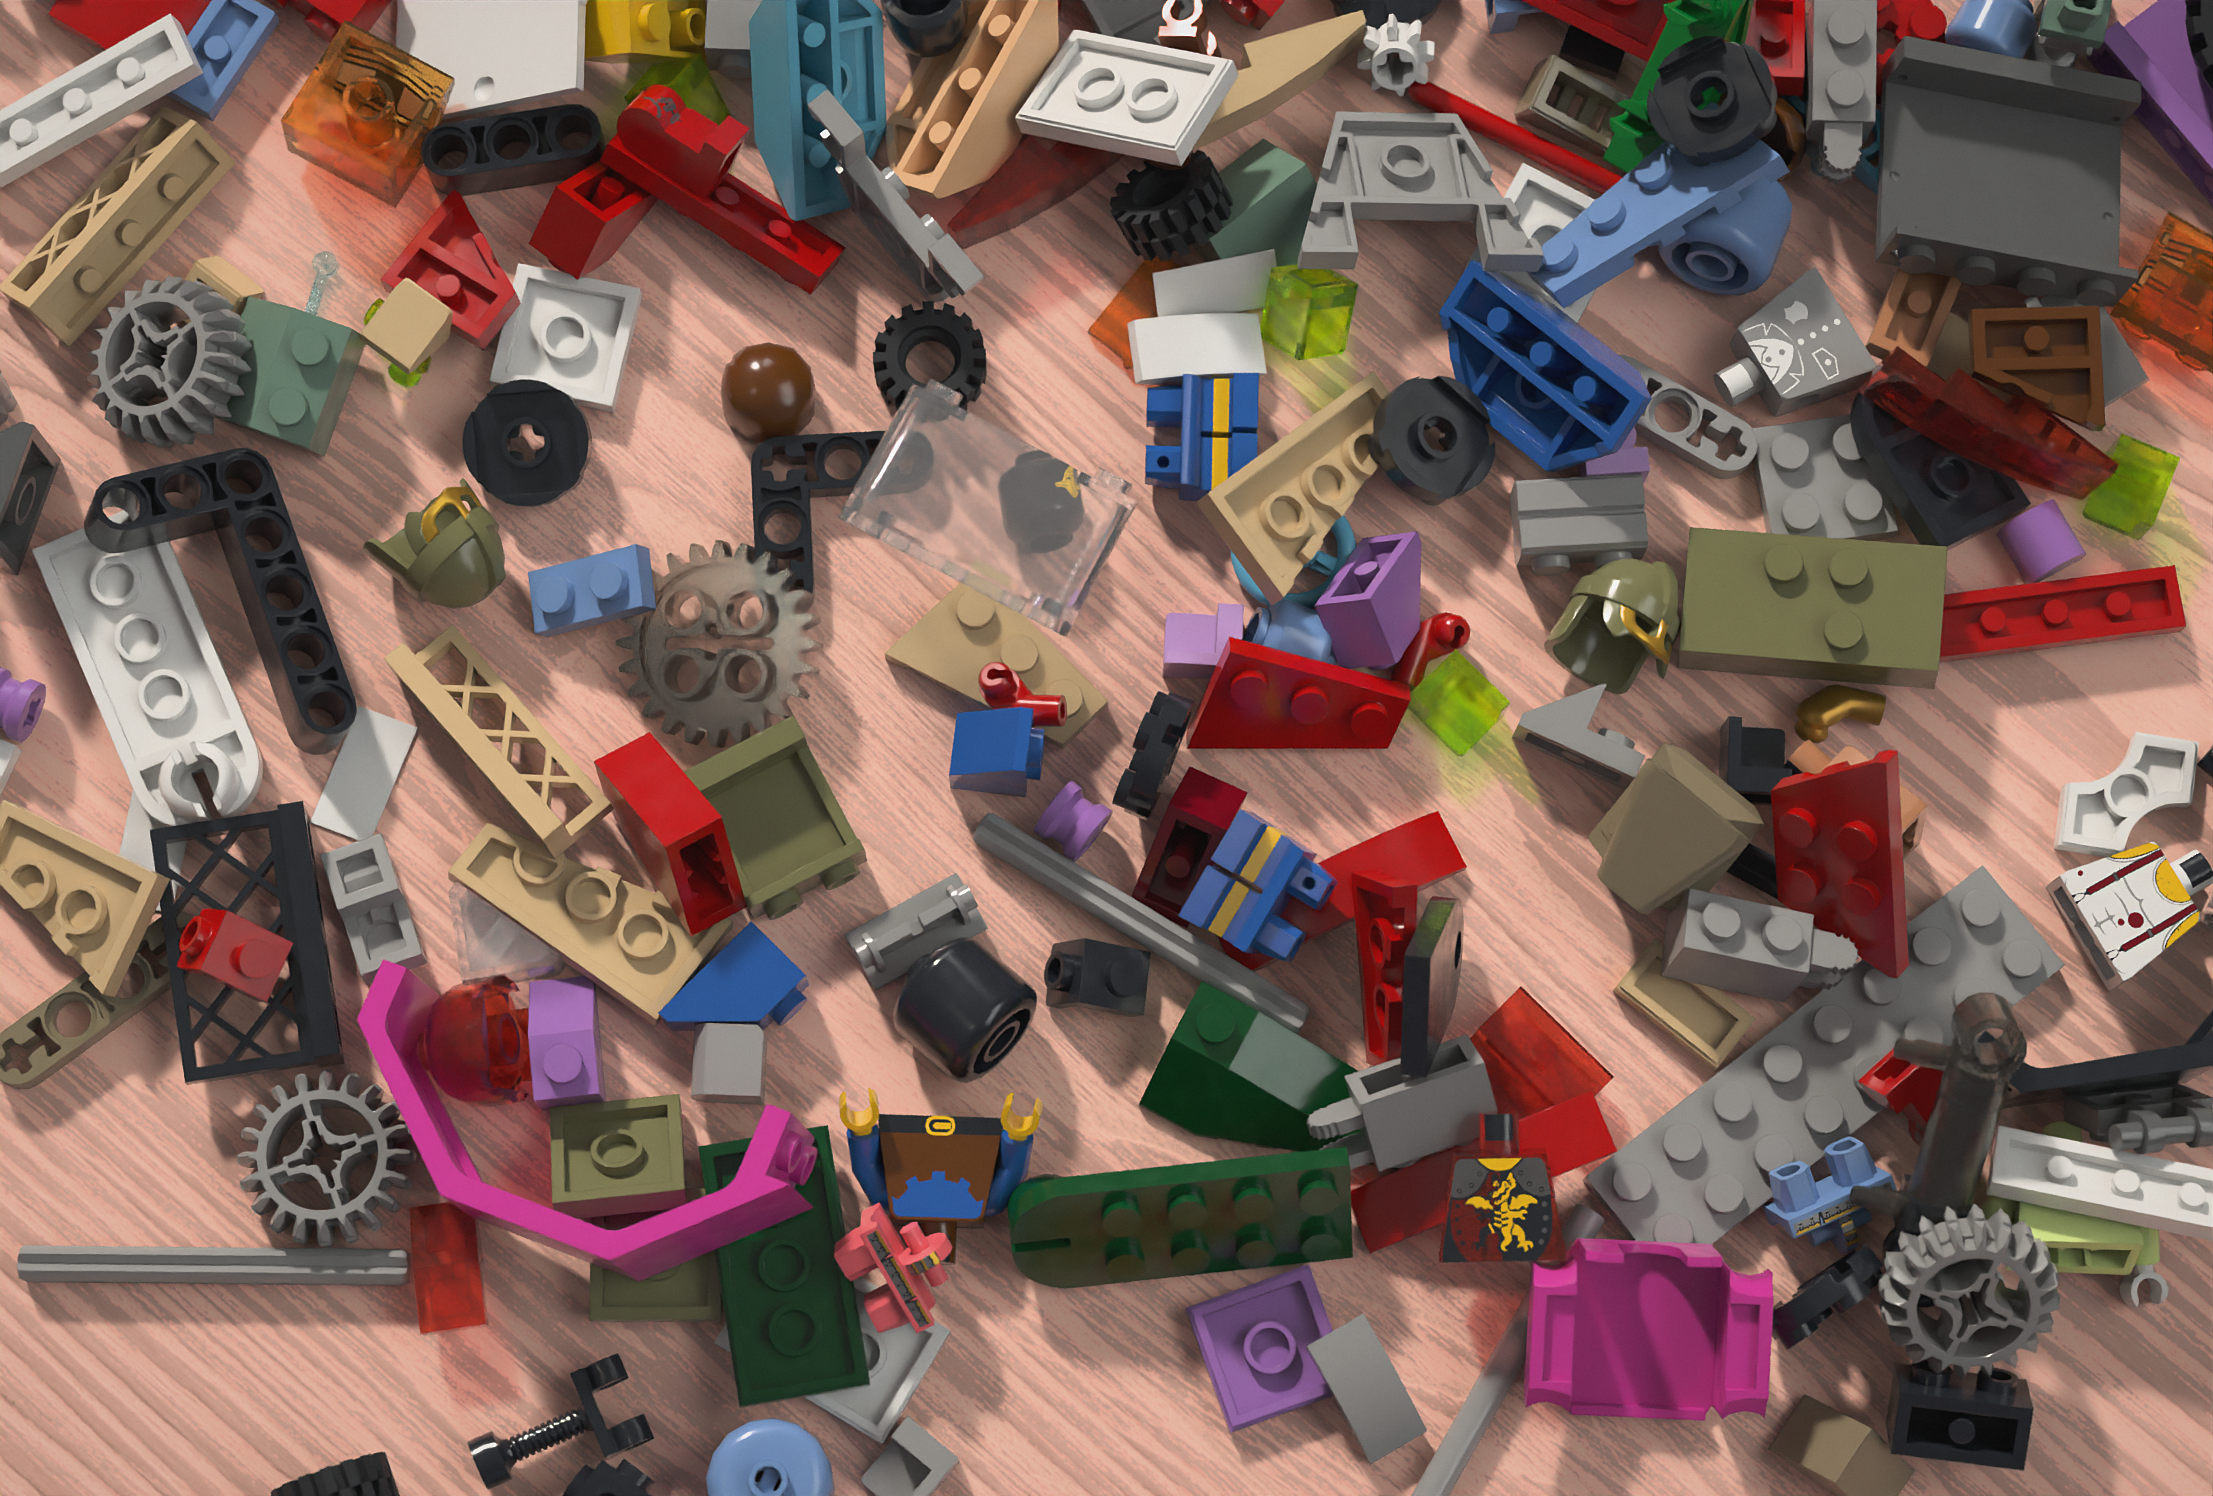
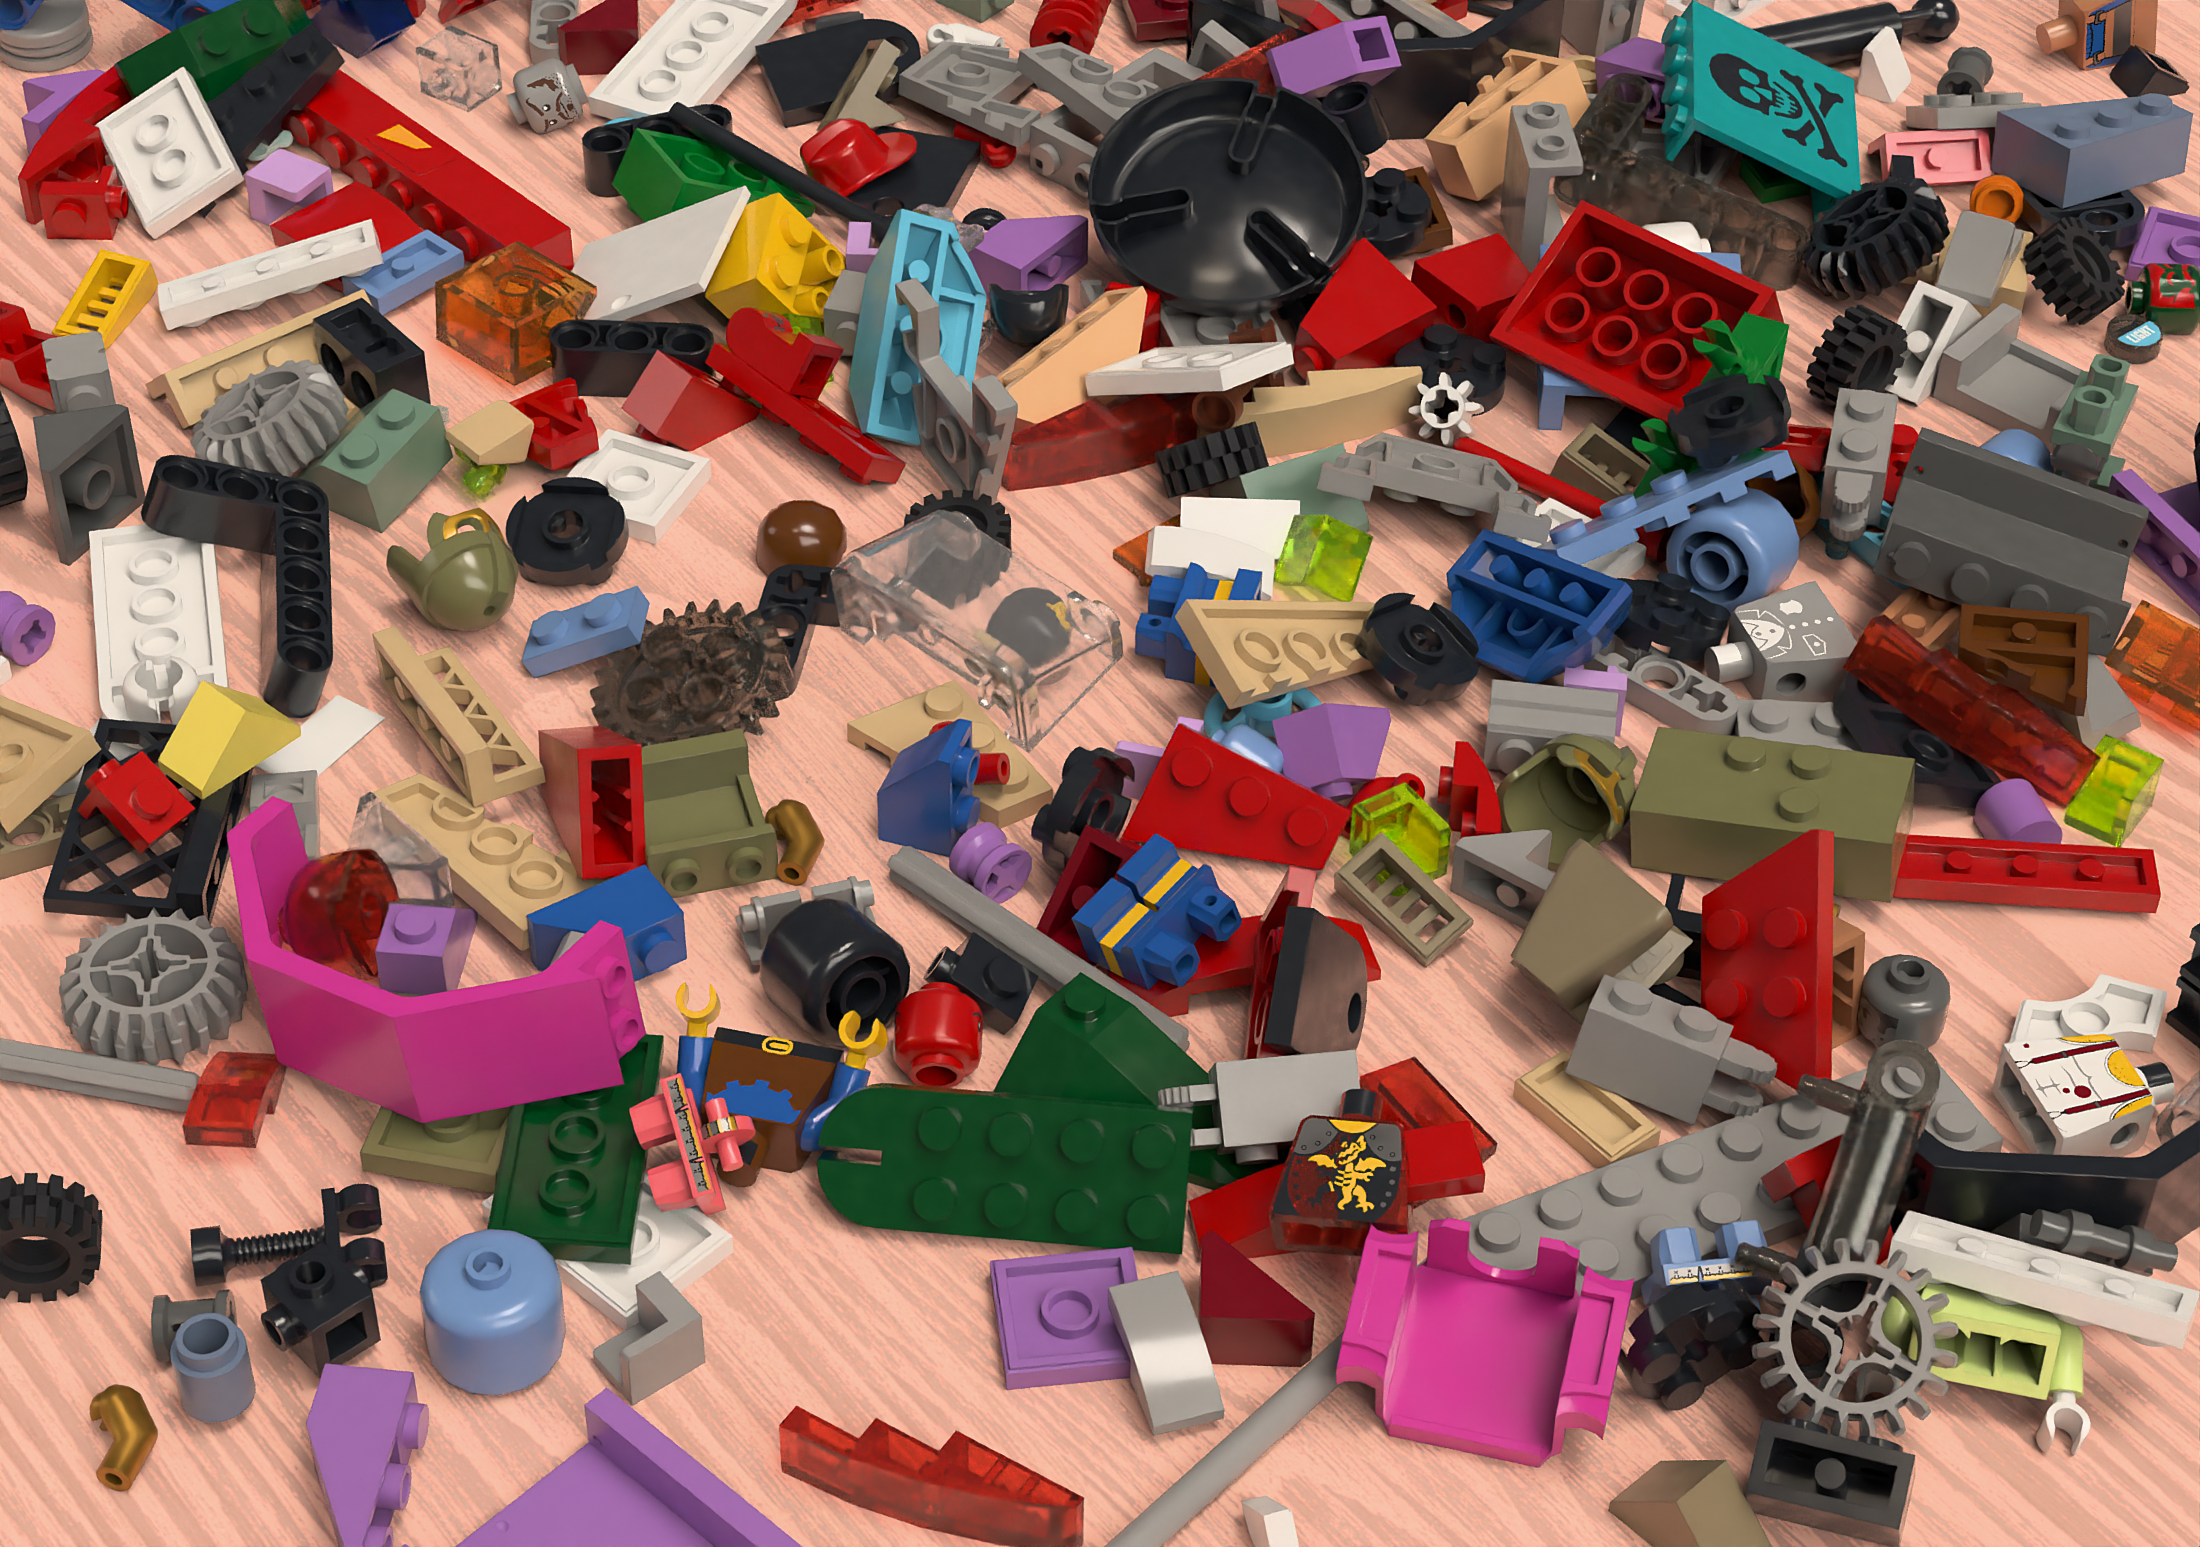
camera: 15 degrees right, 35 degrees down
(241, 231) = (369, 354): none -> black brick
(297, 855) = (223, 738): none -> light yellow slope
(880, 813) = (804, 839): none -> pearl gold arm
(1077, 1058) = (938, 1035): none -> red head
(1419, 1323) = (1247, 1313): none -> dark red slope
(1427, 749) = (1382, 855): none -> dark tan slope
(1516, 632) = (1469, 794): none -> red slope
(1679, 301) = (1672, 617): none -> black plate
(1955, 847) = (1903, 1001): none -> dark grey head

